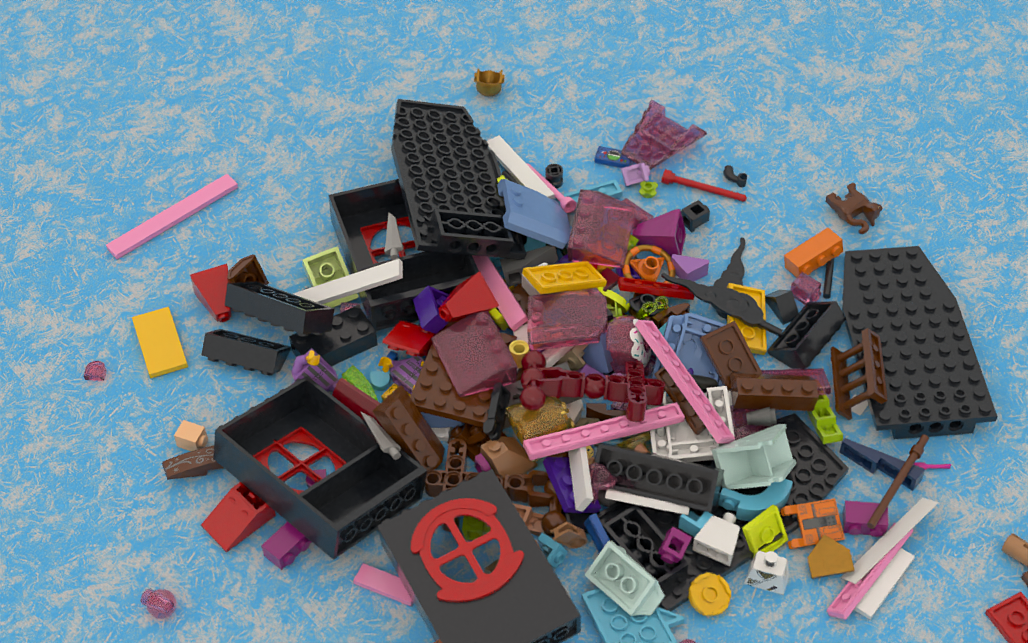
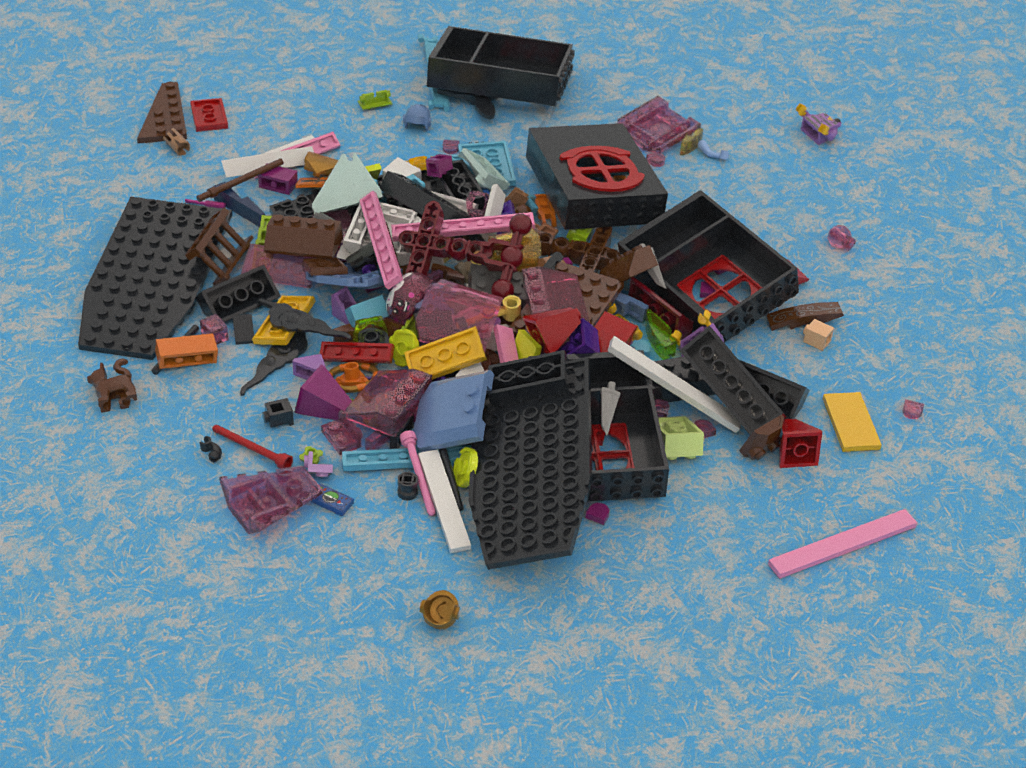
camera: 170 degrees left, 10 degrees down
(768, 572) = (371, 155): white torso -> none

